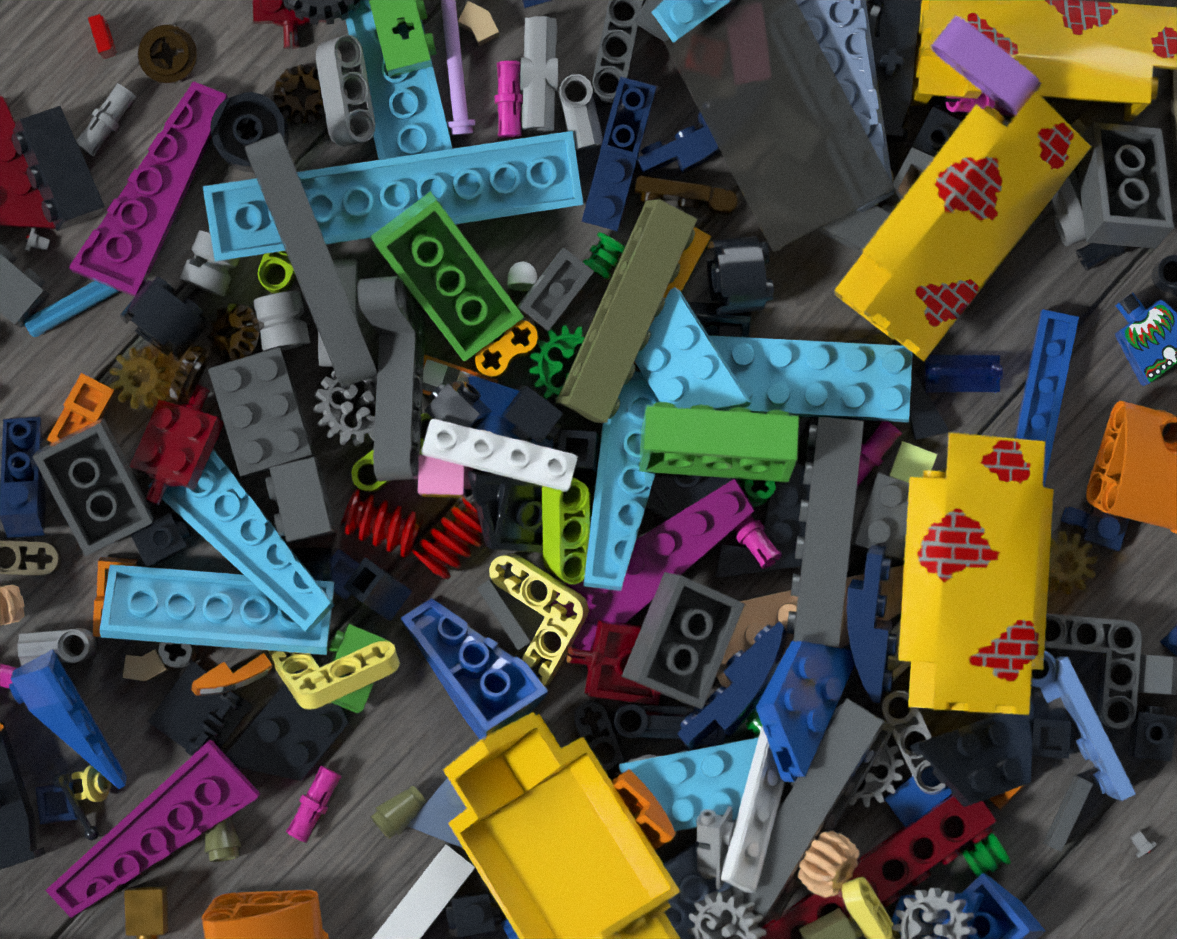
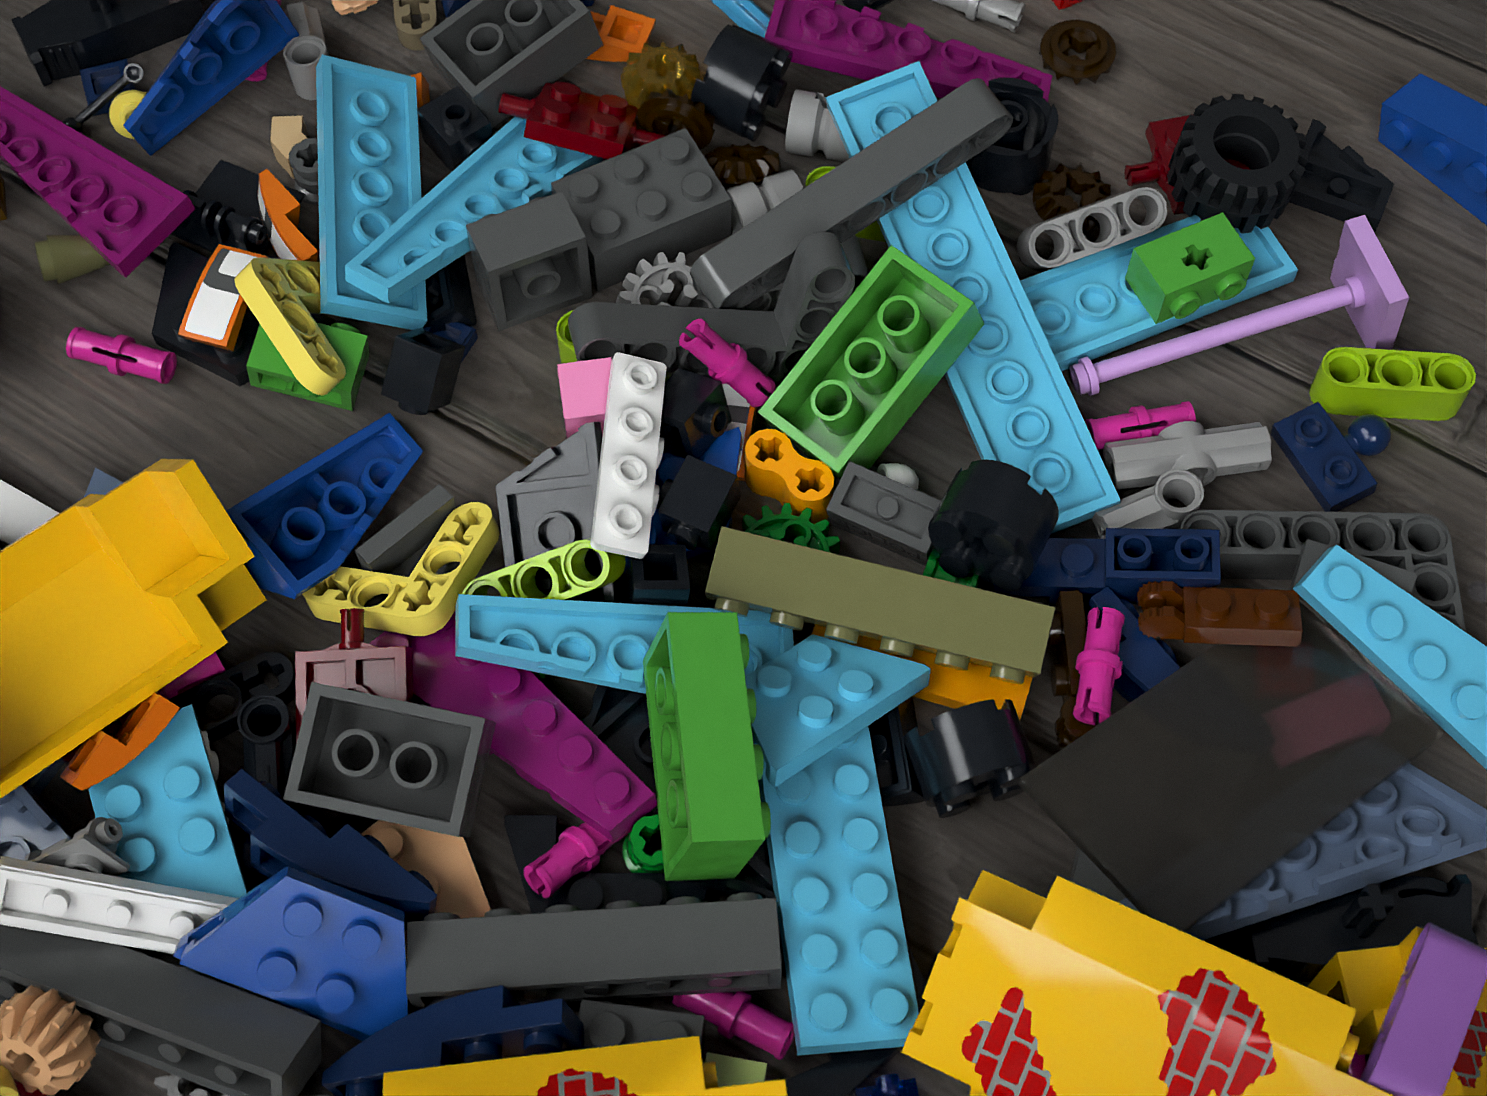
camera: 80 degrees right, 25 degrees down
(291, 723) = (216, 305): none -> slope
(381, 523) = (515, 366): red piece -> none
(398, 812) = (110, 449): olive cone -> none
(428, 376) = (727, 362): none -> dark pink pin
(451, 541) = (491, 447): red piece -> none
(478, 22) = (1232, 376): tan piece -> none
(592, 225) = (992, 524): none -> black brick
(676, 89) = (1220, 615): none -> reddish brown hinge
(697, 179) = (1099, 665): none -> dark pink pin

